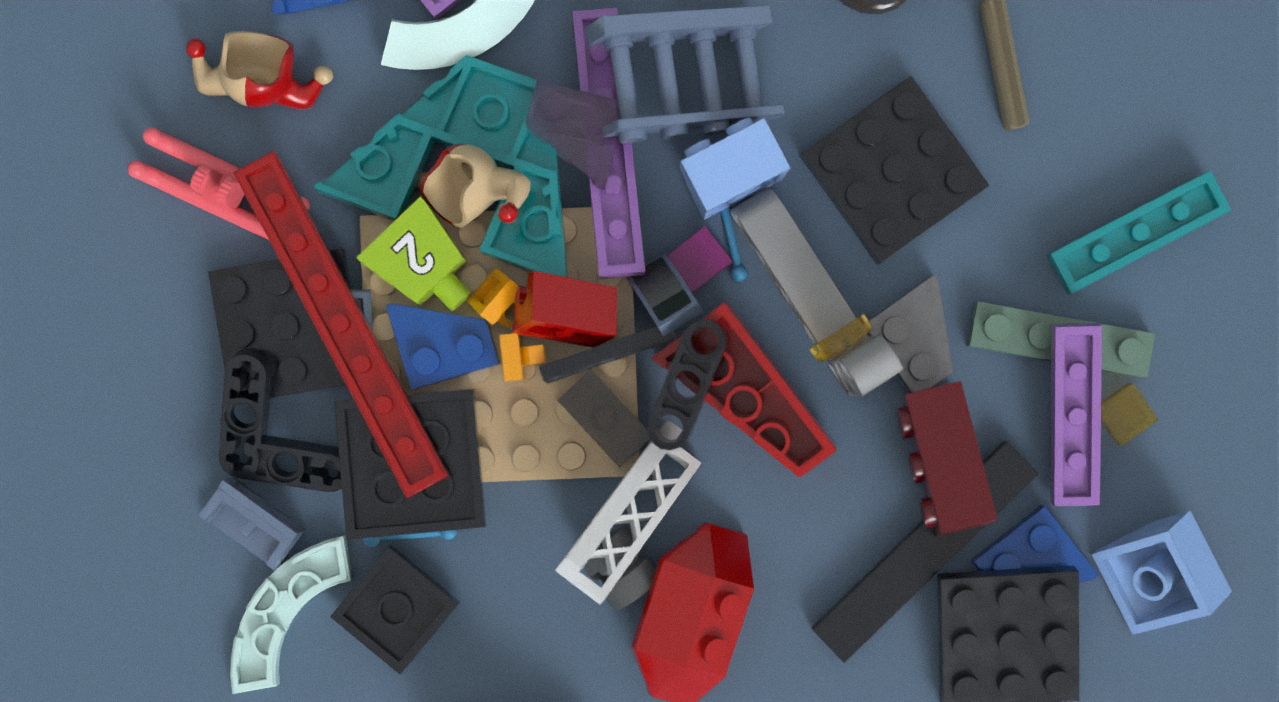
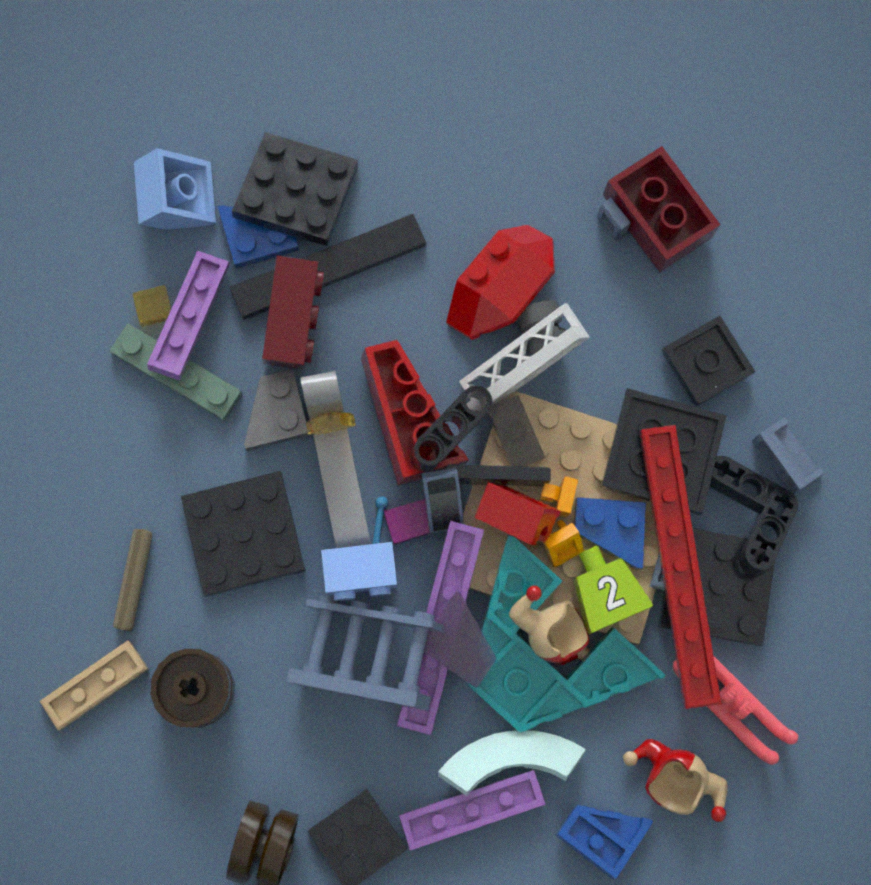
camera: 165 degrees left, 10 degrees down
(274, 607) = (788, 397): light aqua tile -> none
(1138, 232) = (90, 423): teal plate -> none

